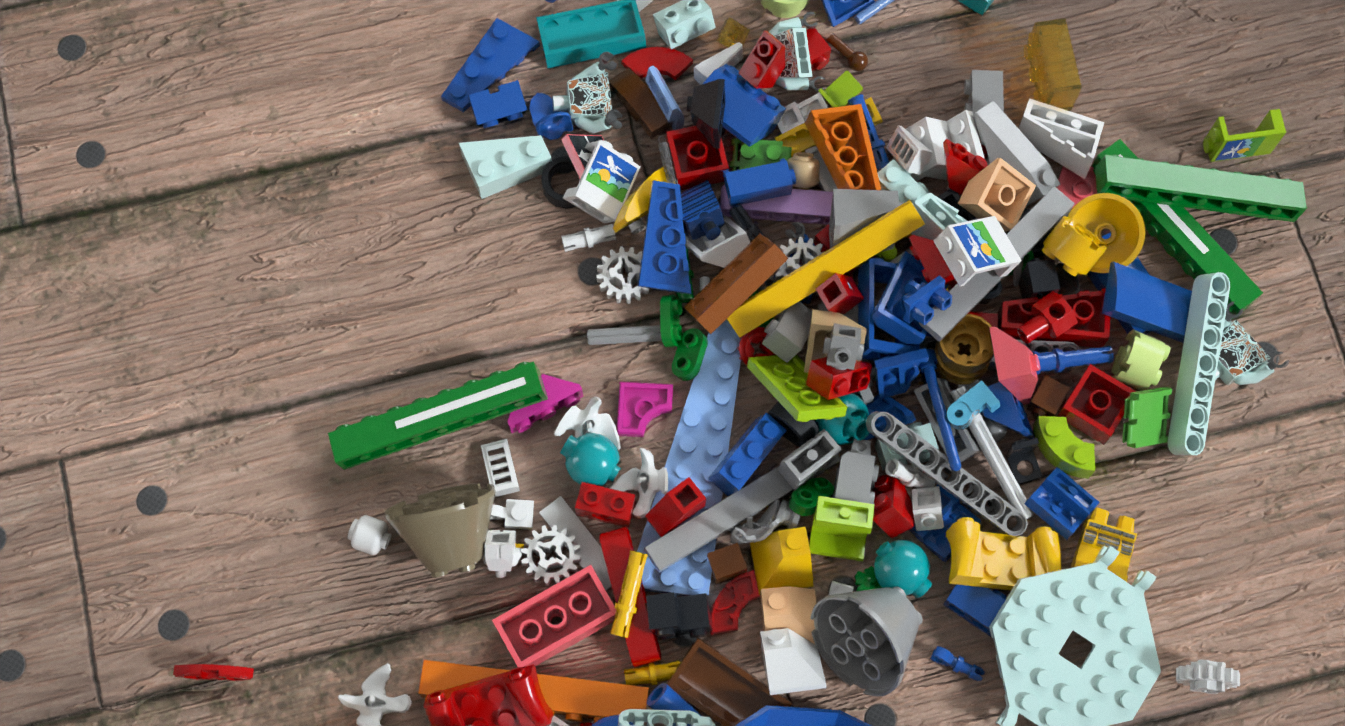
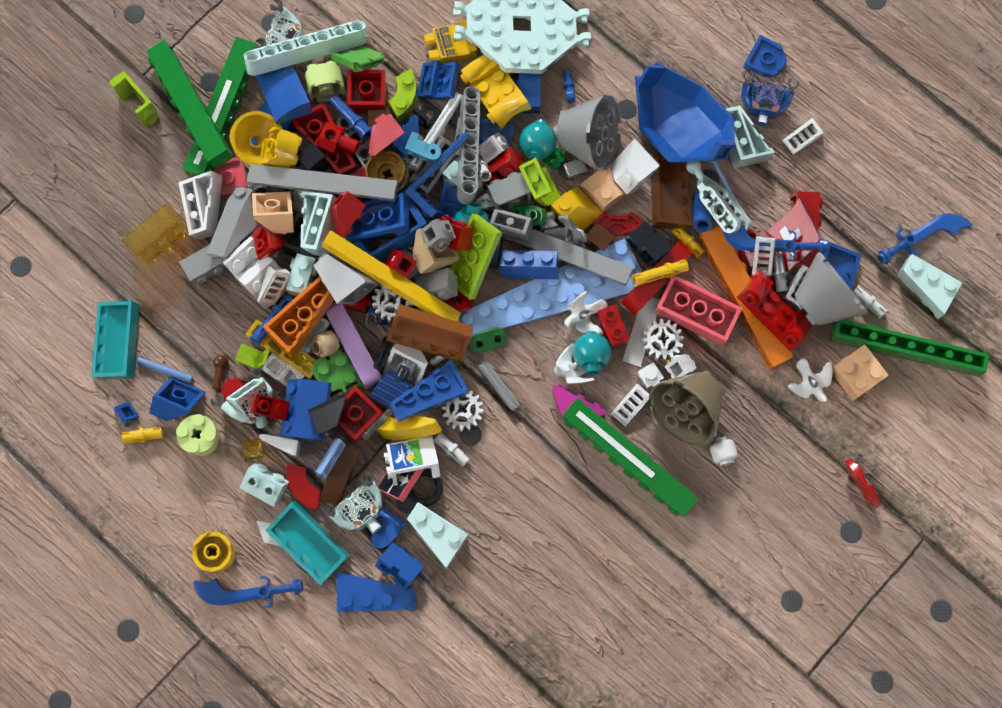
camera: 125 degrees left, 5 degrees up
(640, 404) = (537, 349): dark pink tile -> none
(670, 320) = (480, 358): green plate -> none
(676, 507) = (591, 281): red slope -> none
(759, 183) = (353, 361): blue brick -> none
(921, 297) = (388, 202): blue hips -> none
(976, 248) = (329, 188): white panel -> none

